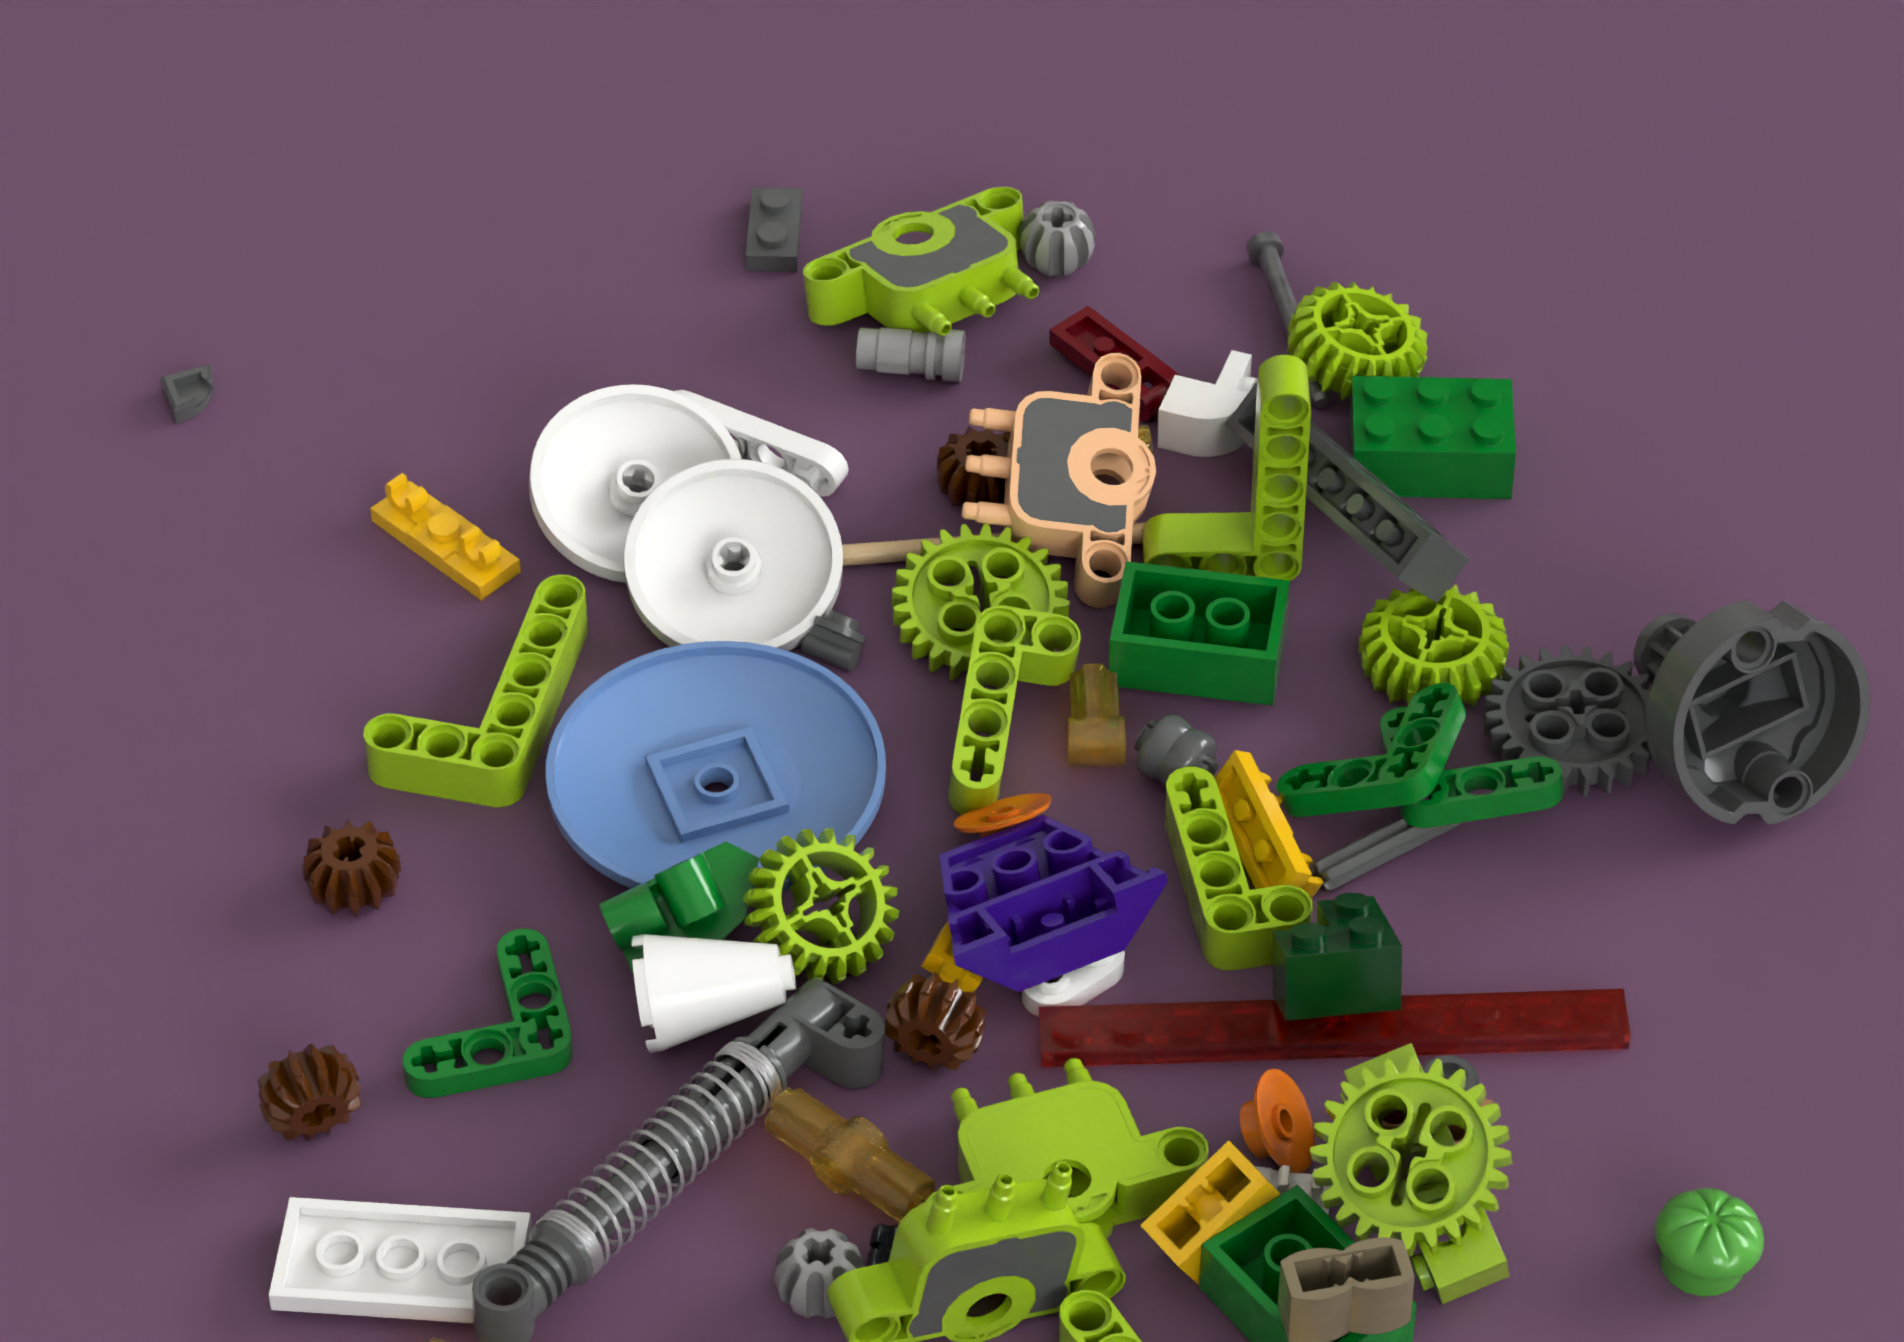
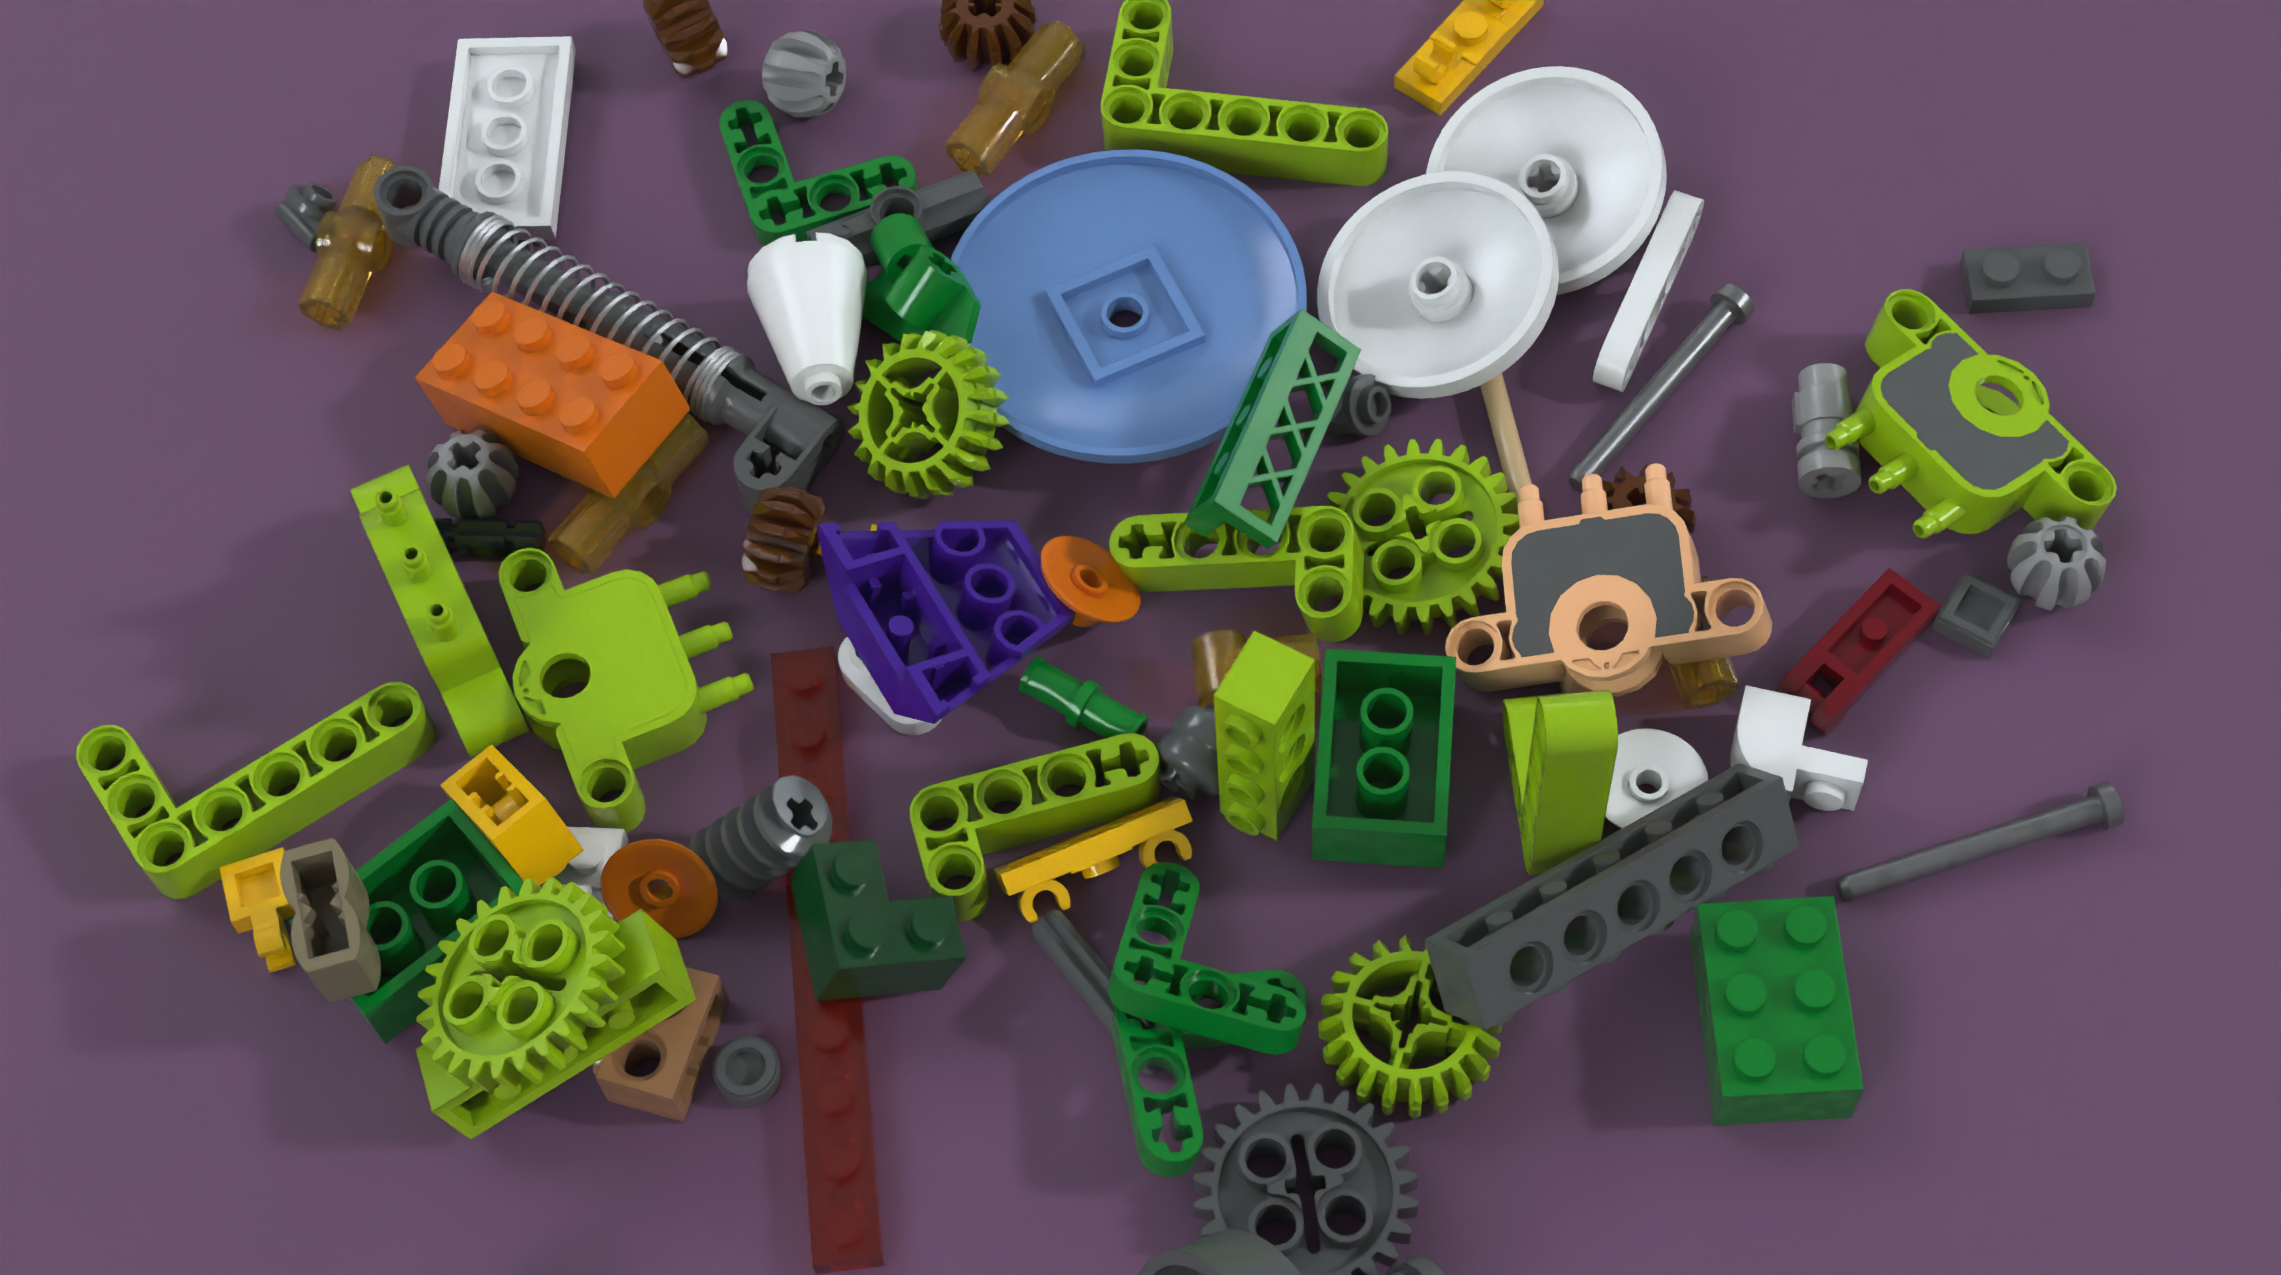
camera: 90 degrees right, 15 degrees up
(390, 1001) = (804, 73): none -> light grey piece
(450, 853) = (1015, 98): none -> clear yellow piece
(582, 943) = (939, 208): none -> dark grey piece
(753, 1184) = (554, 393): none -> orange brick
(775, 399) = (1729, 307): none -> flat silver bar
(893, 653) = (1253, 426): none -> green fence
(1086, 290) = (1976, 614): none -> dark grey tile
(1128, 824) = (1080, 702): none -> green pin
(1212, 651) = (1265, 736): none -> lime brick
(1219, 483) = (1655, 760): none -> white piece
(1249, 1030) = (764, 836): none -> dark grey piece
(1355, 334) = (1936, 935): lime gear -> none

